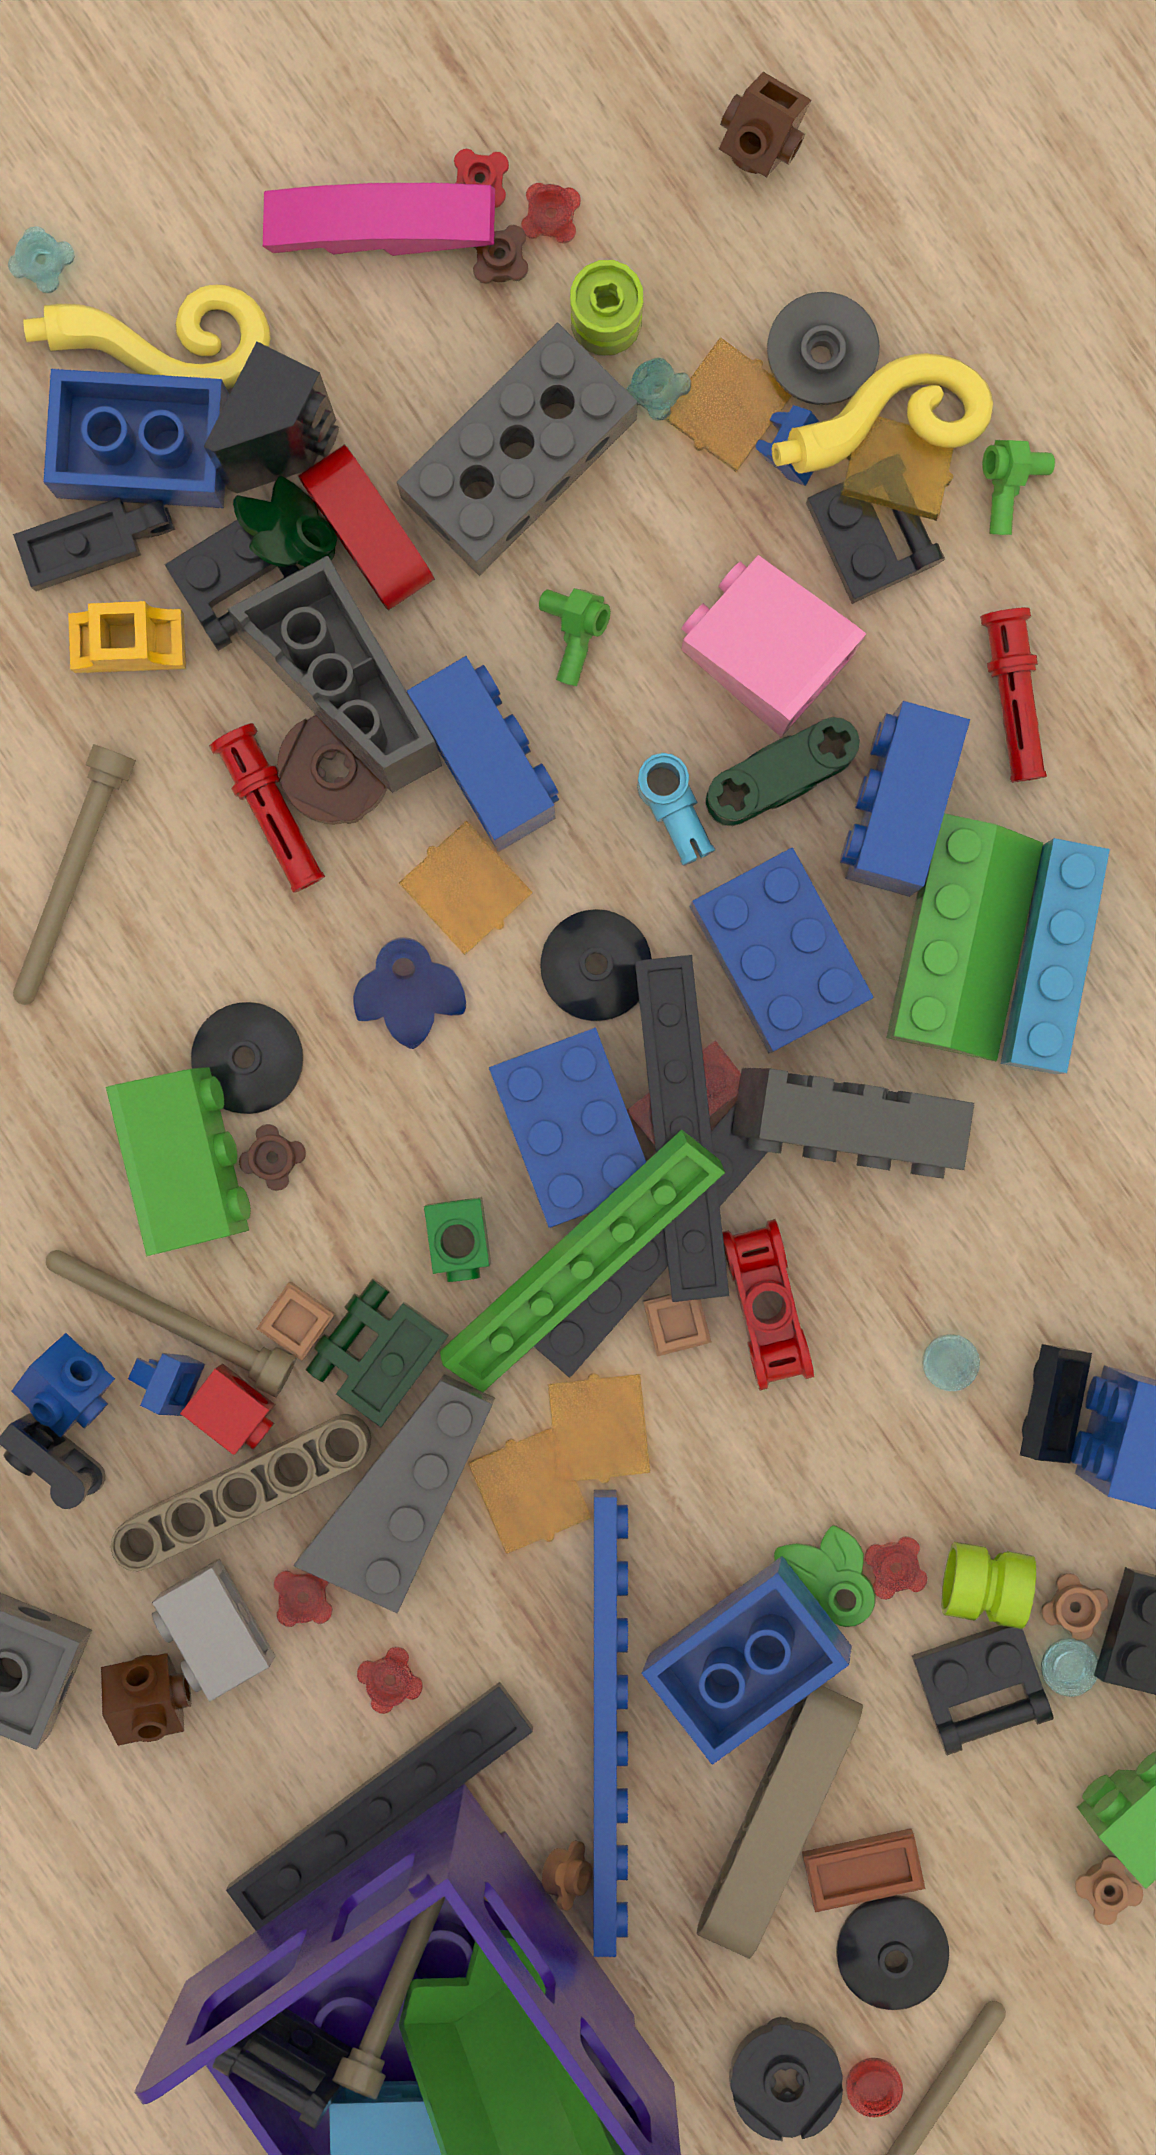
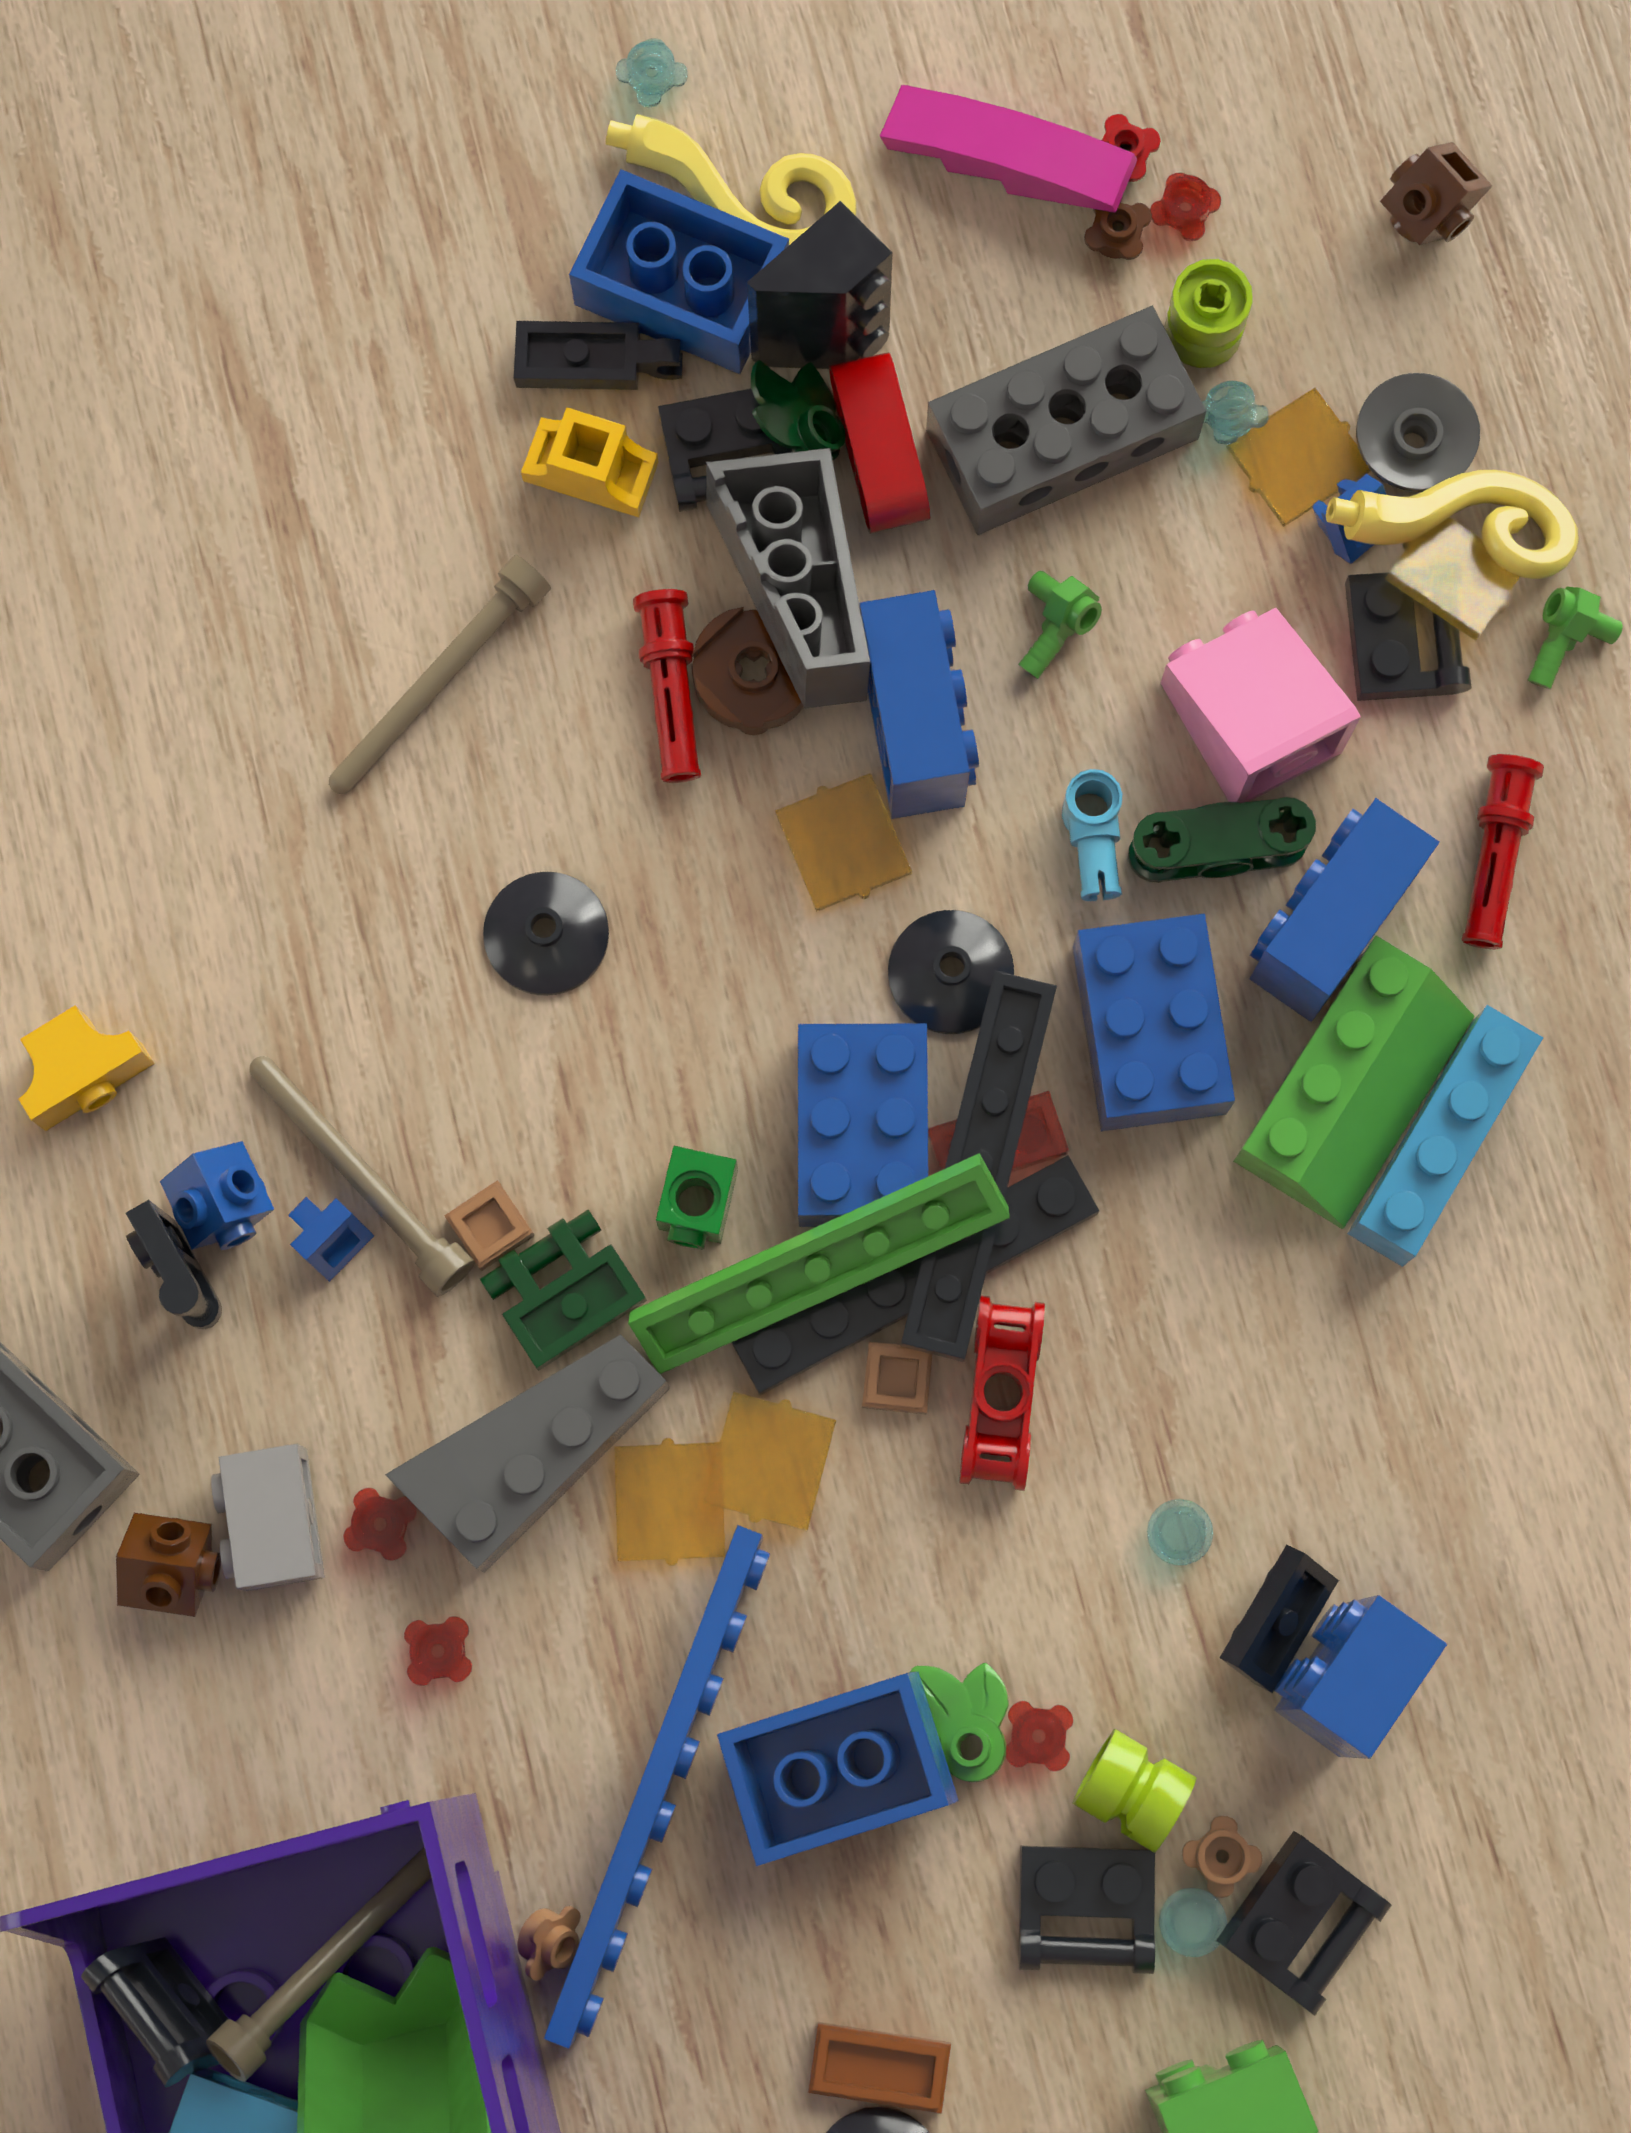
camera: 15 degrees right, 10 degrees down
(179, 1159) = (434, 1002): bright green slope -> none
(219, 1508) = (329, 1374): dark tan beam -> none
(230, 1410) = (382, 1290): red brick -> none
(256, 1159) = (532, 1025): reddish brown plate -> none
(381, 1805) = (355, 1789): black plate -> none
(411, 999) = (740, 934): clear blue plate -> none
(779, 1821) = (806, 1970): dark tan beam -> none
(852, 1119) = (1165, 1224): dark grey wedge -> none

